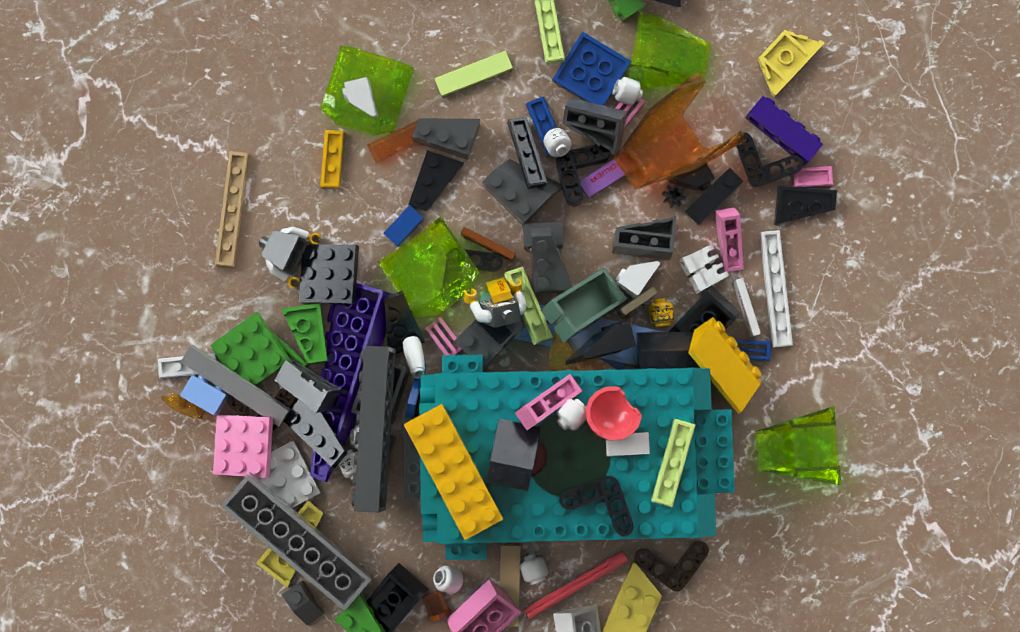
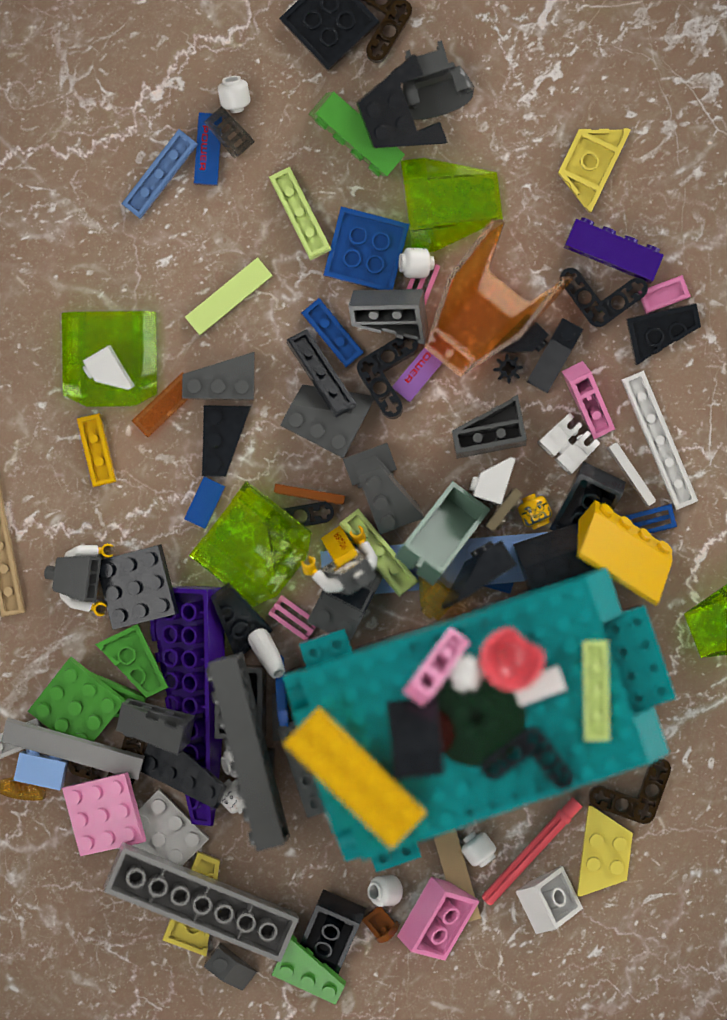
camera: 15 degrees left, 5 degrees up
(557, 142) = (353, 351): white head -> none

